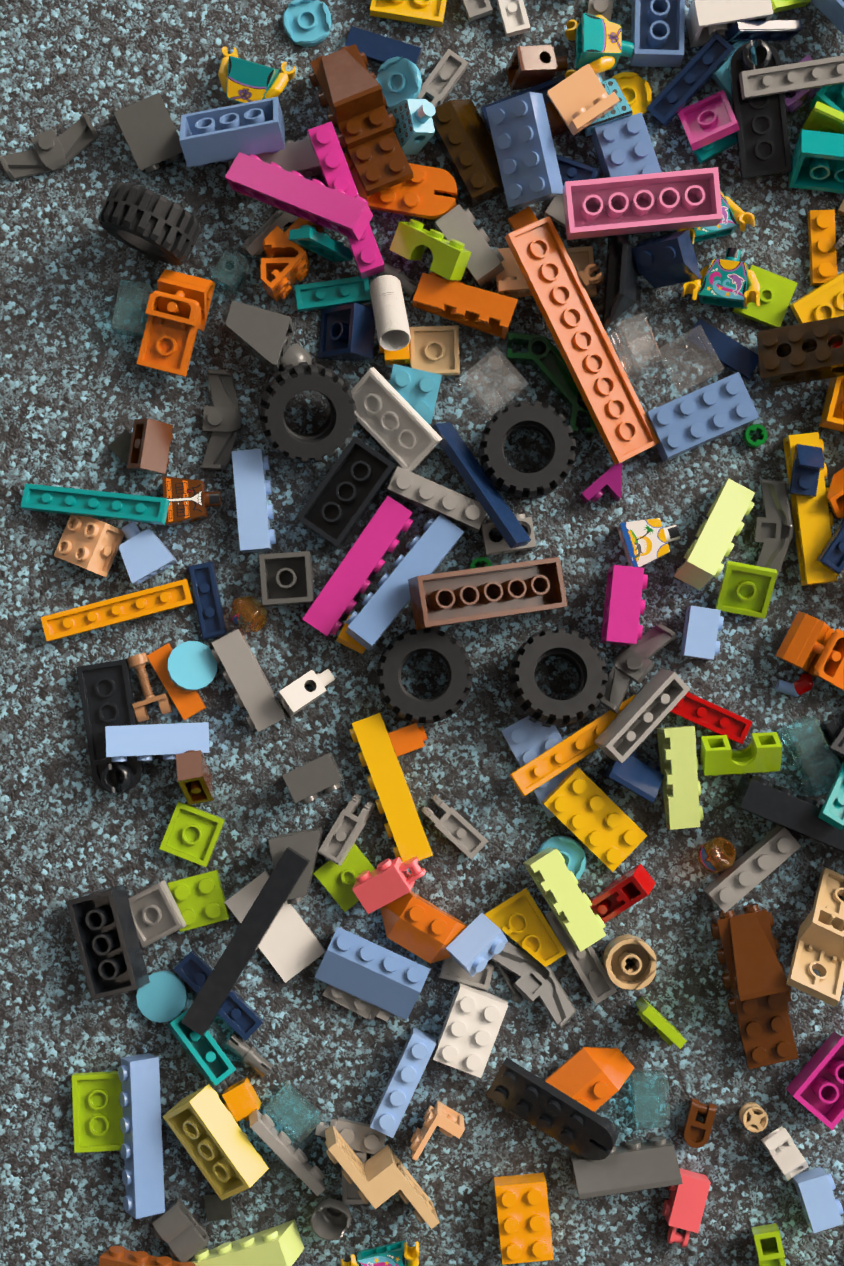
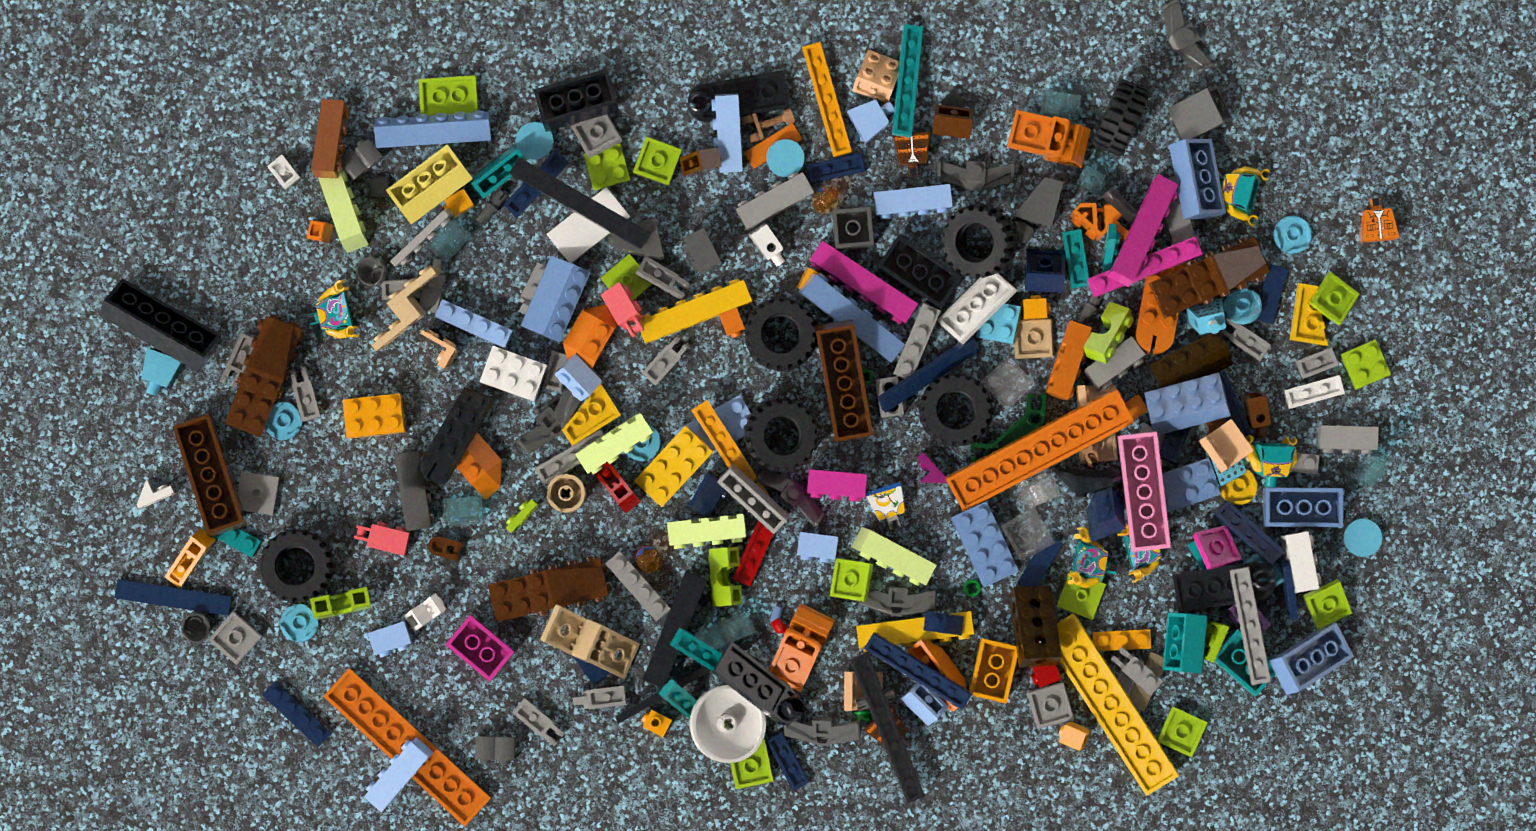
camera: 90 degrees right, 0 degrees up
(389, 313) = (1058, 302): white piece -> none
(757, 1121) = (448, 591): tan wheel -> none

